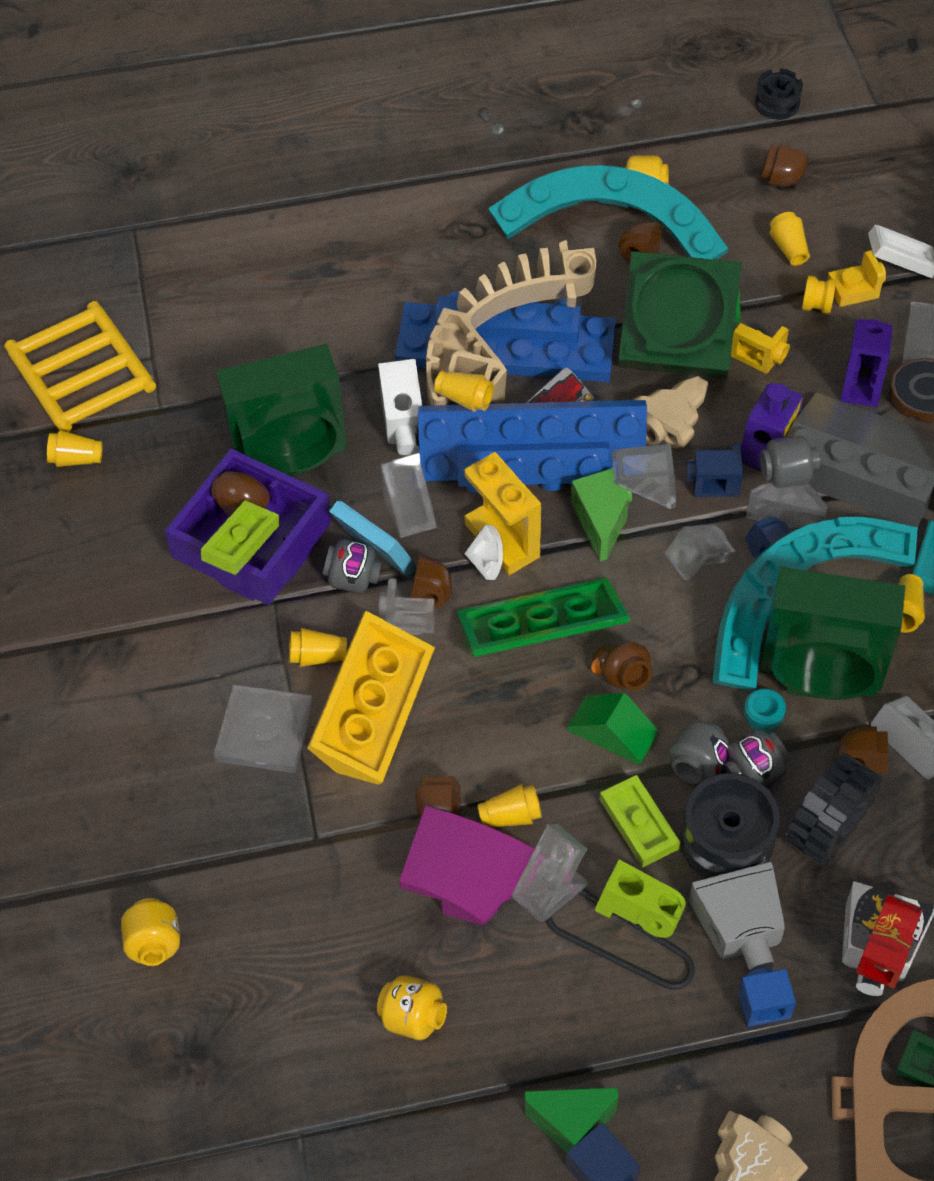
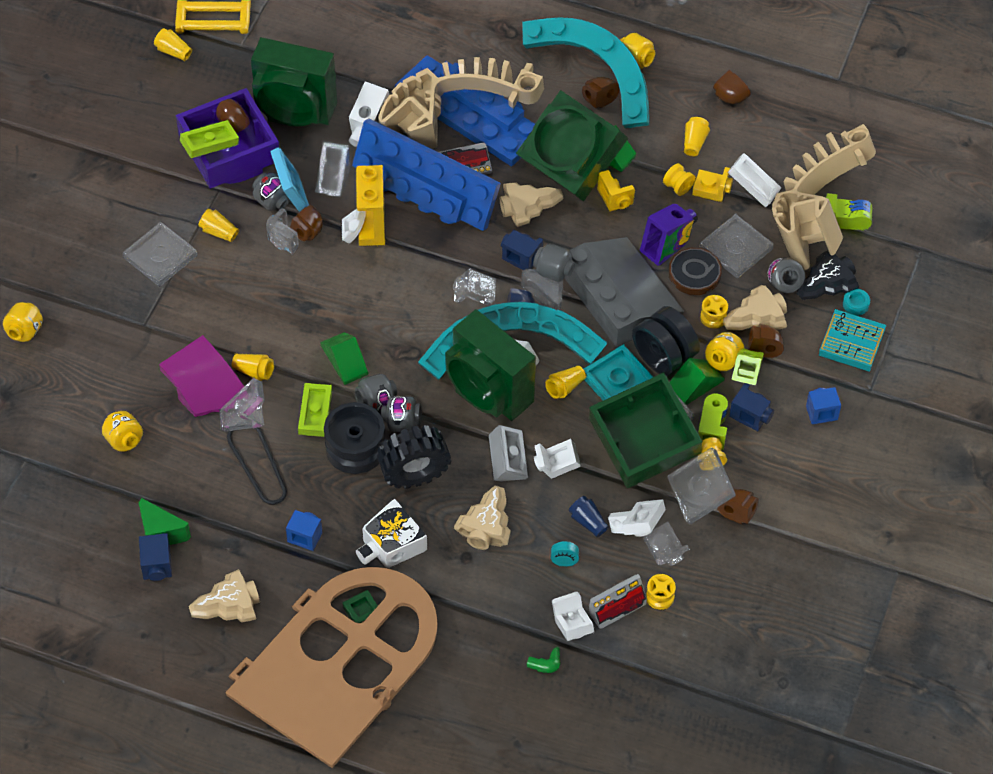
camera: 30 degrees right, 0 degrees up
(370, 700) = (225, 268): yellow slope -> none
(438, 793) = (221, 339): reddish brown piece -> none
(465, 389) = (398, 123): yellow cone -> none
(541, 617) = (353, 276): green slope -> none
(600, 509) = (437, 236): bright green slope -> none
(624, 665) = (376, 326): reddish brown animal -> none
(641, 900) = (279, 446): lime leg -> none
(646, 472) = (476, 228): clear slope -> none
(741, 913) = (328, 483): light grey torso -> none
(764, 709) = (435, 393): teal tile -> none
(772, 415) = (574, 231): dark purple torso -> none
(778, 94) = (773, 40): black wheel -> none
(867, 747) = (467, 444): reddish brown piece -> none
(890, 941) = (381, 533): red leg -> none

